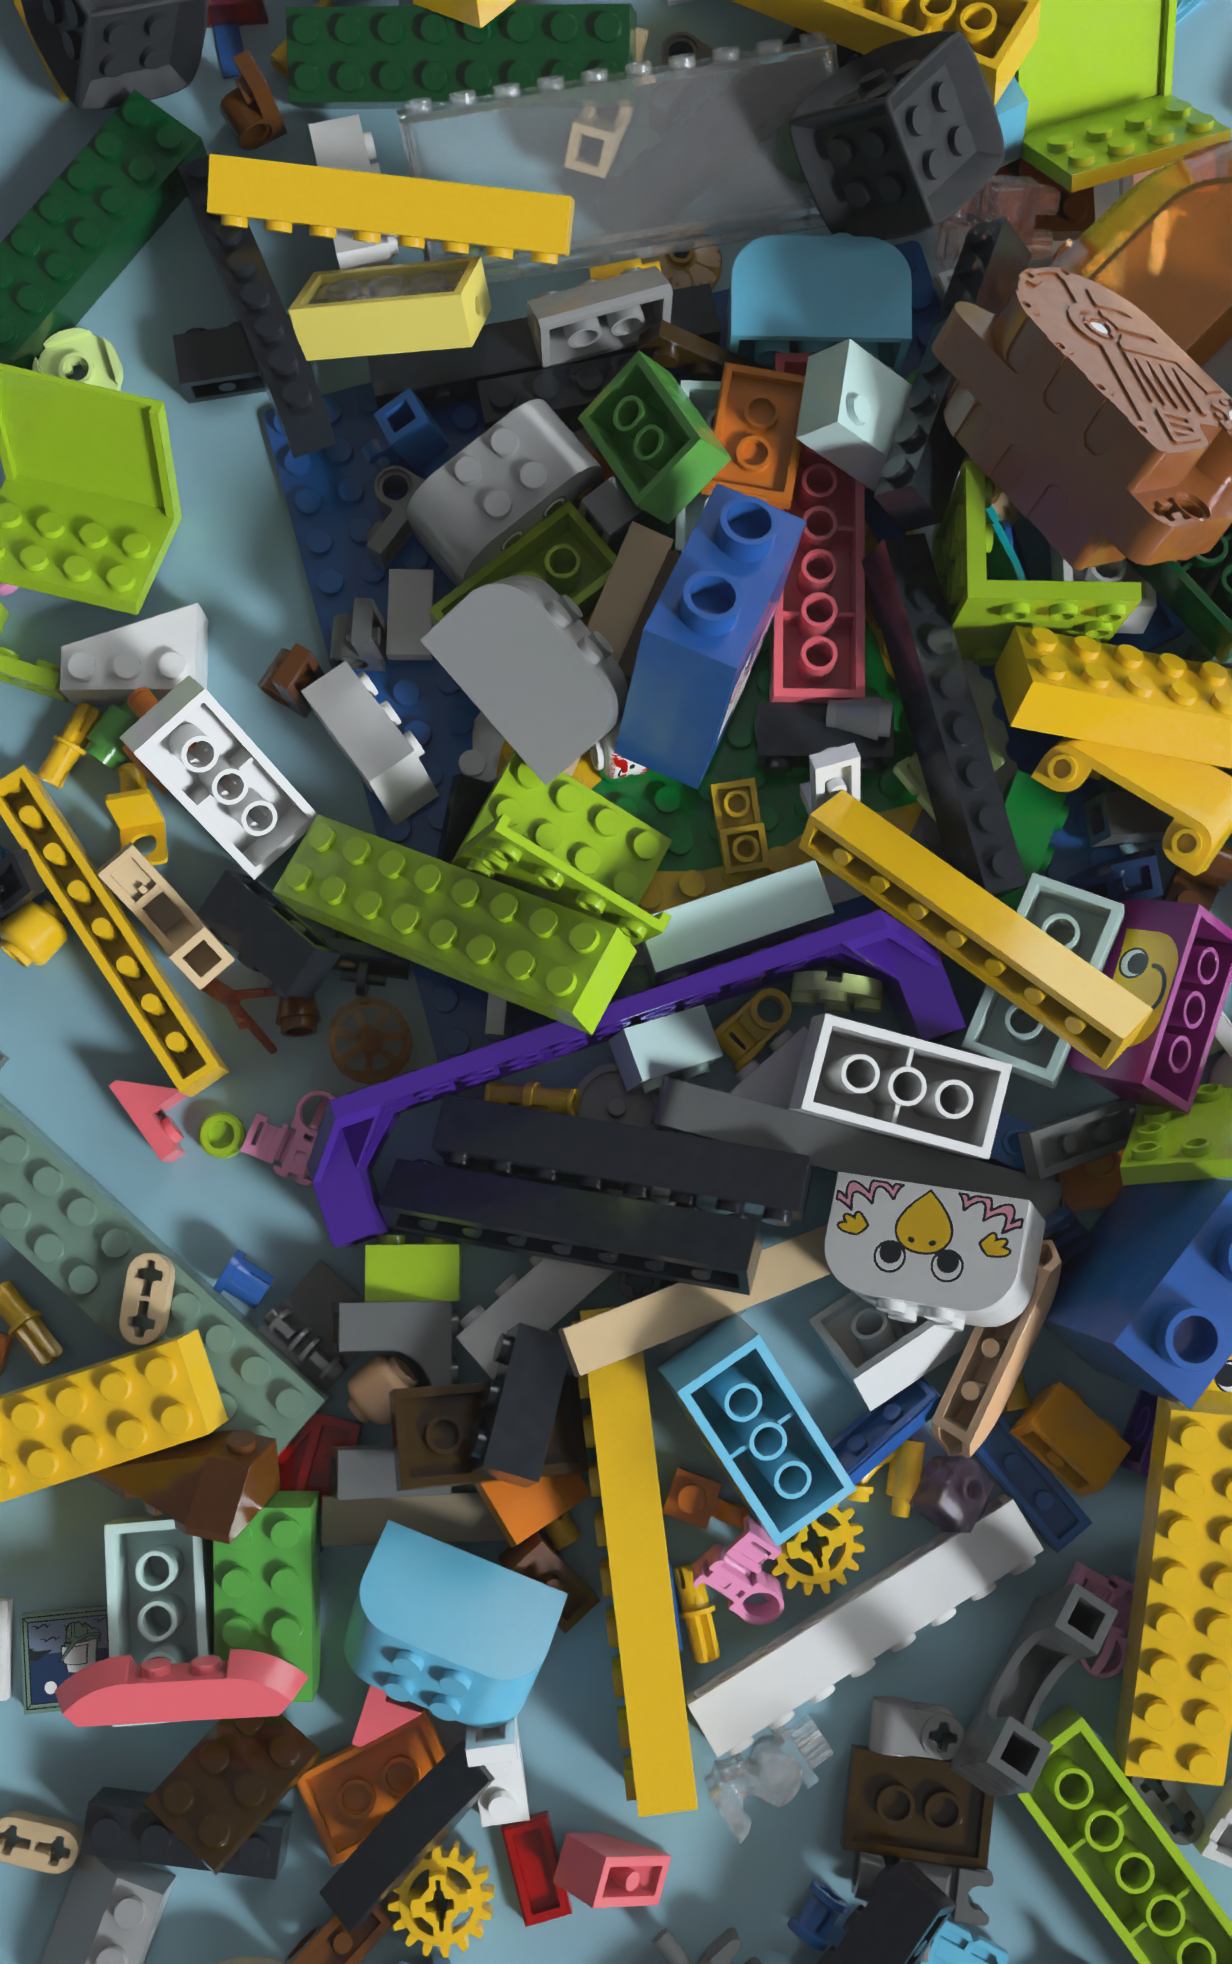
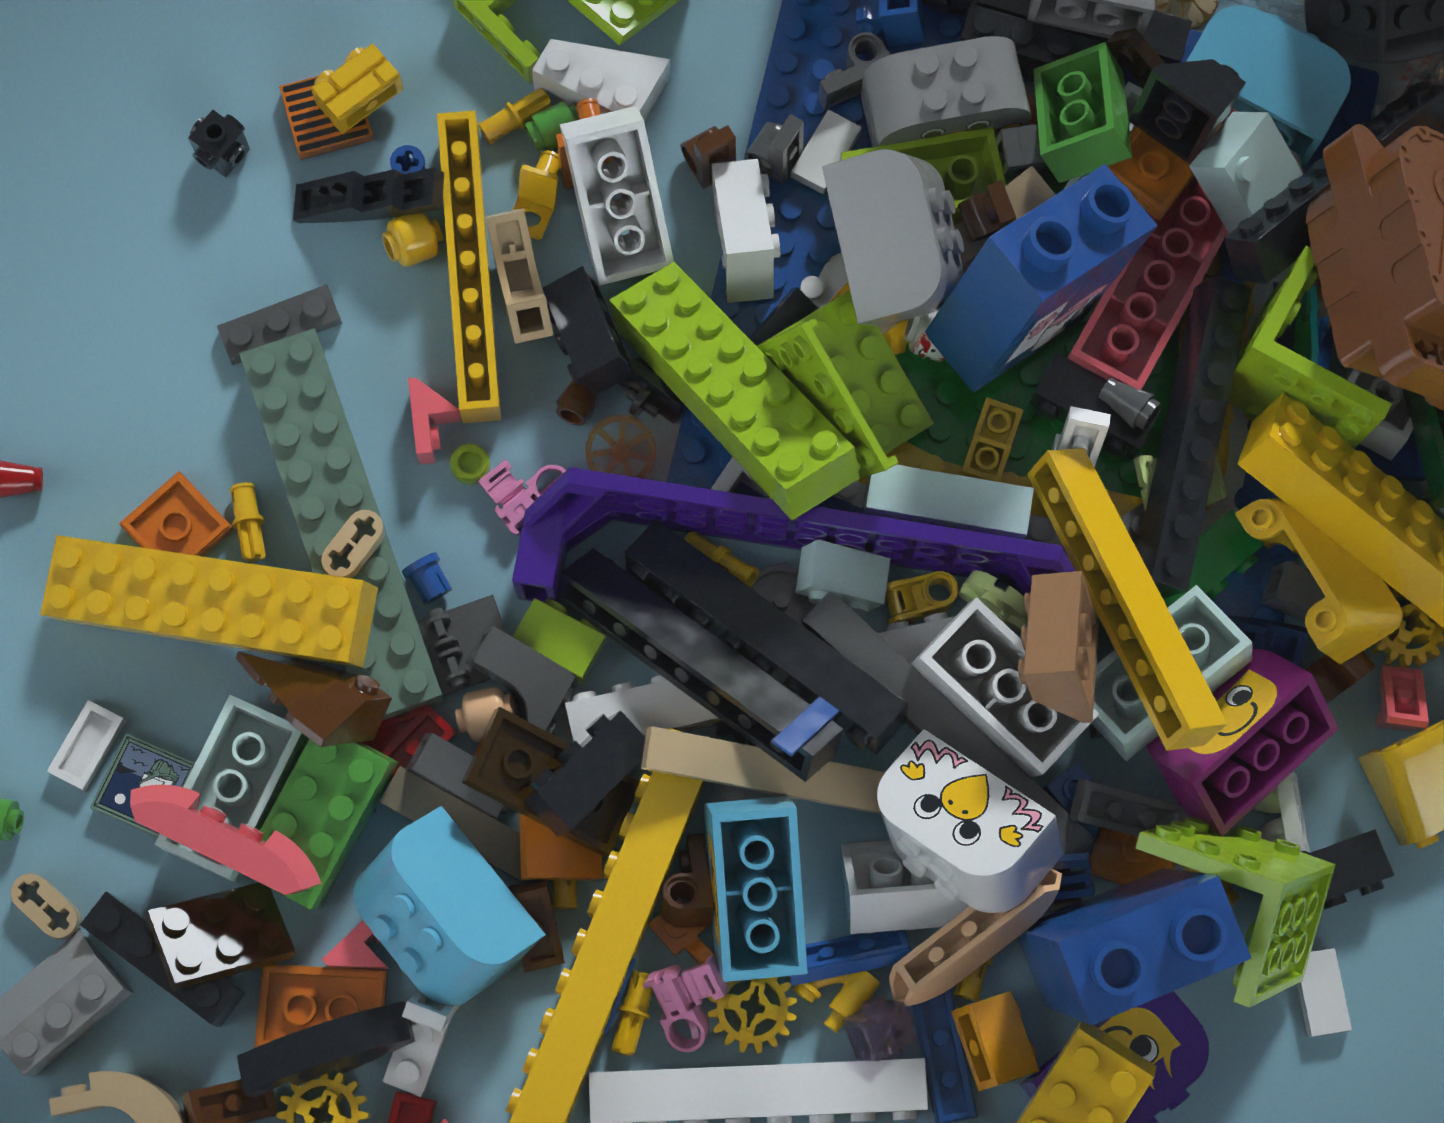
camera: 25 degrees right, 5 degrees down
(232, 999) = (533, 366): clear red plant -> none
(615, 595) = (987, 212): none -> reddish brown plate
(690, 1452) = (691, 883): none -> reddish brown plate
(720, 1241) = (805, 726): none -> window
(762, 373) = (1186, 104): none -> black slope
(937, 1017) = (1060, 644): none -> medium nougat slope

